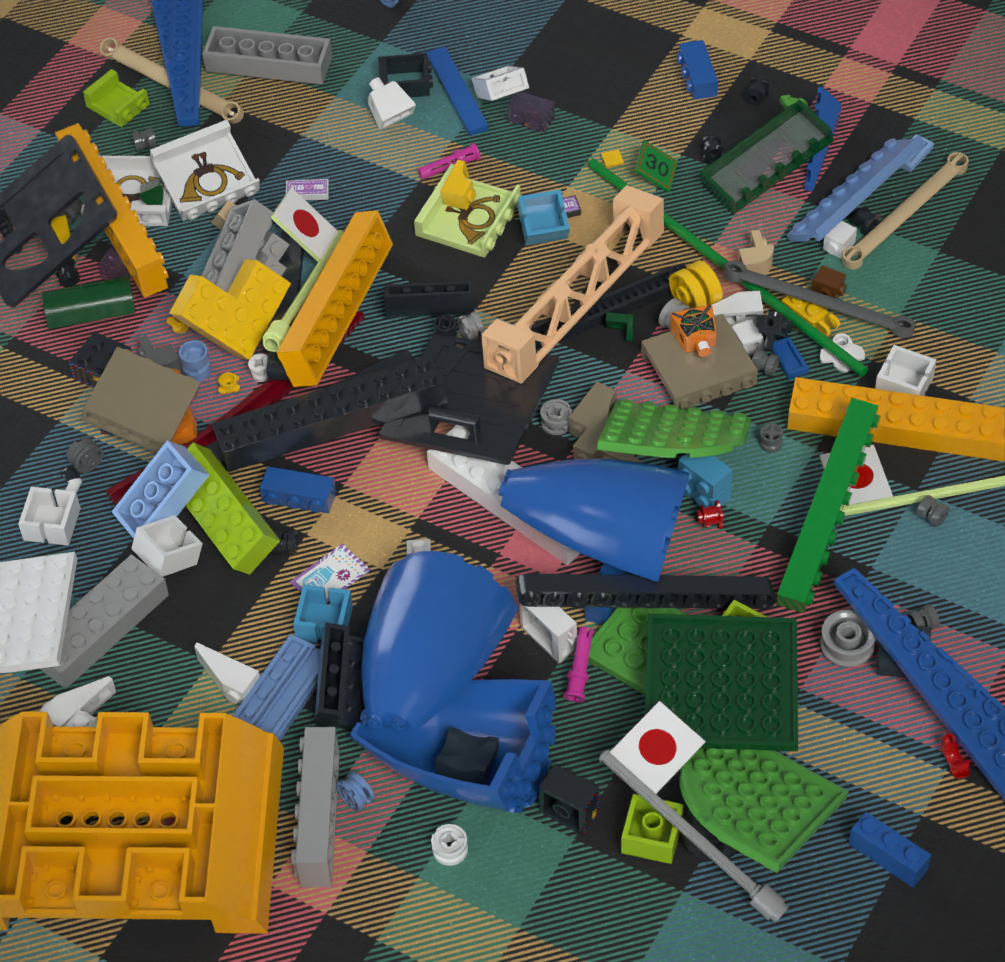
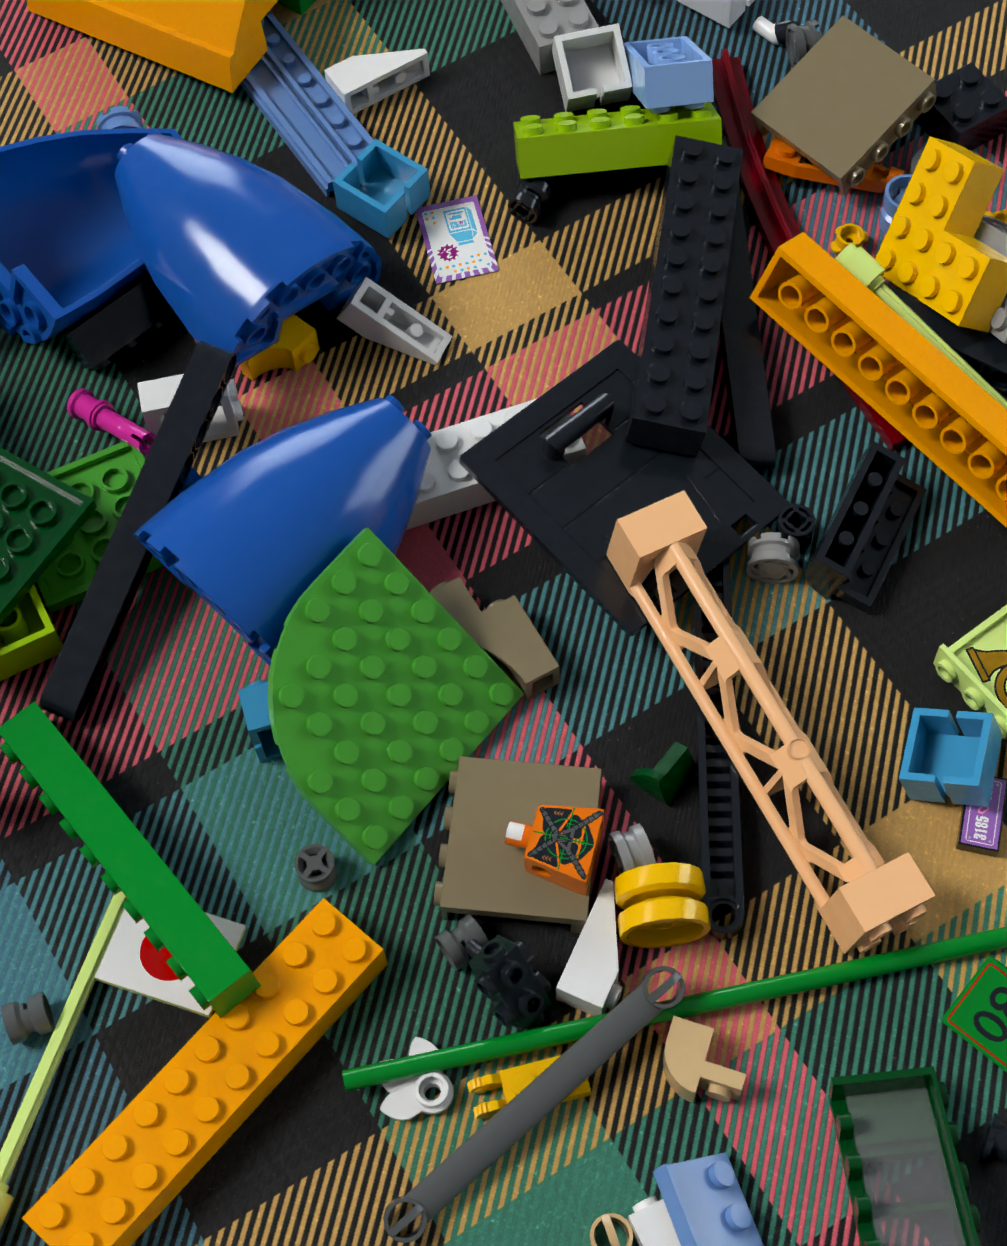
camera: 120 degrees right, 10 degrees up
(298, 490) = (606, 243): blue brick -> none
(316, 807) = (109, 75): light grey brick -> none
(339, 678) = (296, 158): black brick -> none
(467, 757) = (70, 242): black brick -> none
(555, 415) = (543, 596): light grey wheel -> none
(710, 515) = (229, 708): red brick -> none
(748, 336) = (536, 936): white brick -> none
(790, 358) = (452, 995): blue tile -> none
(829, 282) = (564, 1147): reddish brown brick -> none
(906, 372) = (286, 1136): white piece -> none

